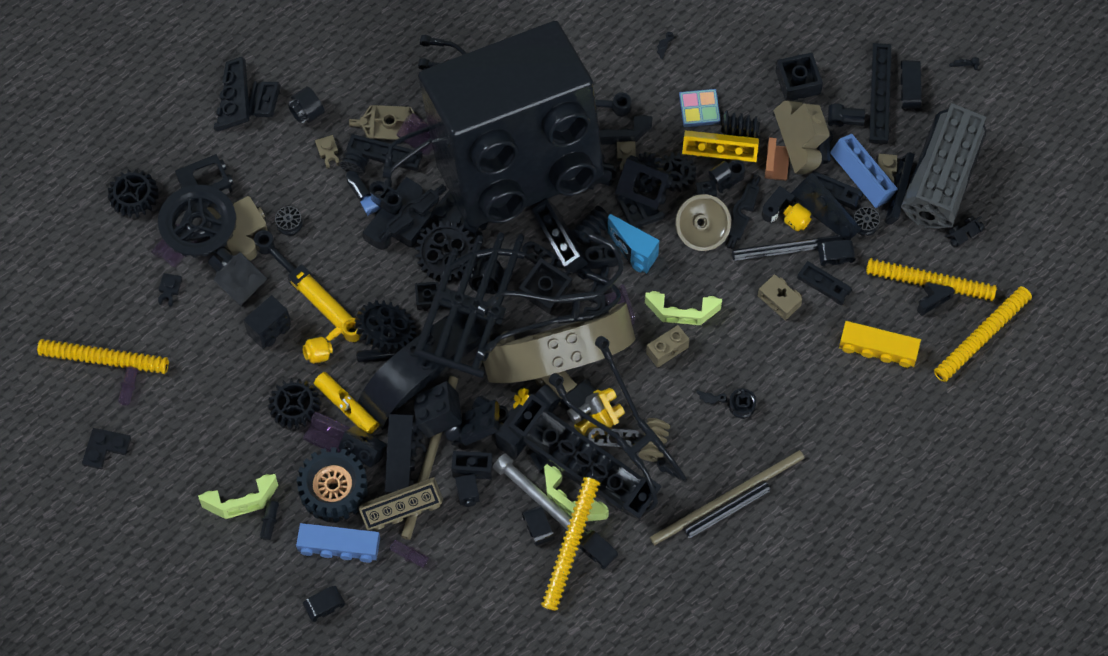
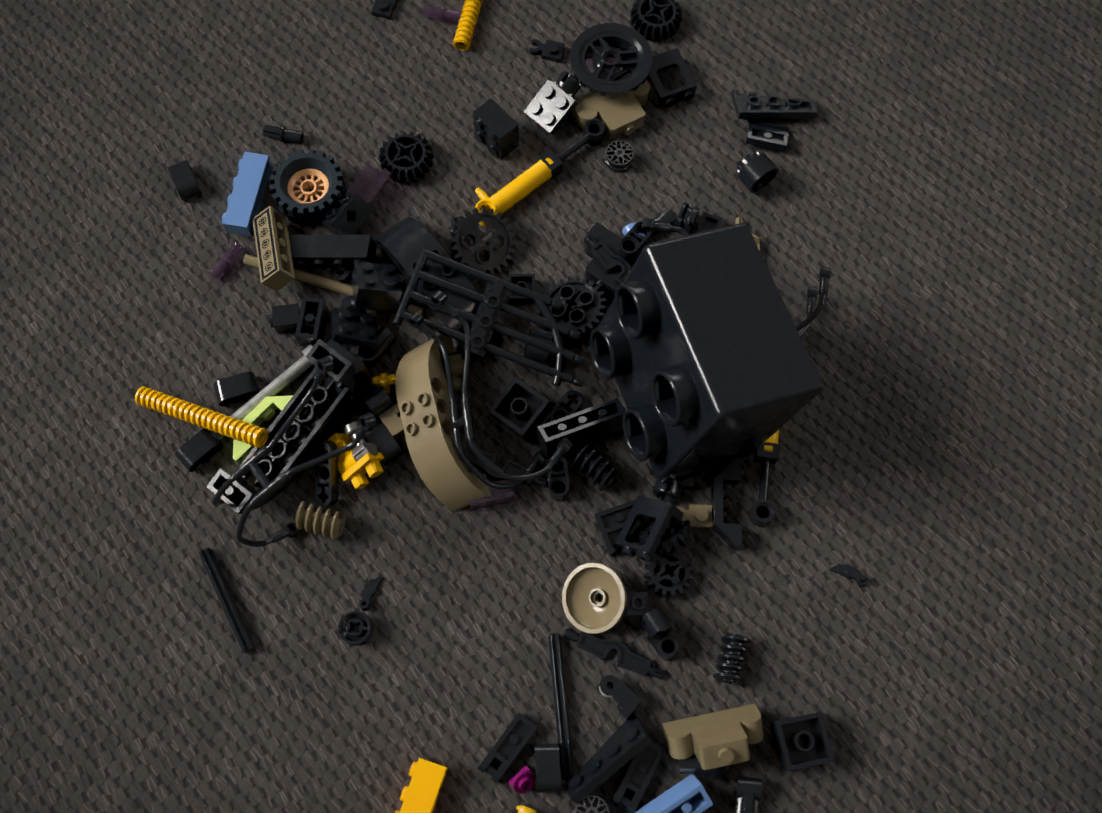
camera: 90 degrees right, 5 degrees up
(234, 507) = (312, 127): yellowish green slope -> none
(317, 350) = (465, 179): yellow head -> none
(327, 148) = (707, 196): dark tan plate -> none
(336, 393) = (391, 213): yellow piece -> none
(637, 246) = (564, 511): dark azure slope -> none
(655, 302) = (491, 537): yellowish green slope -> none
(667, 346) = (435, 543): dark tan brick -> none
(699, 108) = (760, 610): tile -> none
(720, 146) = (700, 629): yellow brick -> none
(727, 497) = (243, 604): dark tan piece -> none
(776, 161) = (682, 701): nougat panel -> none
(781, 305) = (477, 690): dark tan brick -> none
(797, 217) = (600, 720): yellow head -> none
(847, 271) = (522, 781): none -> magenta plate

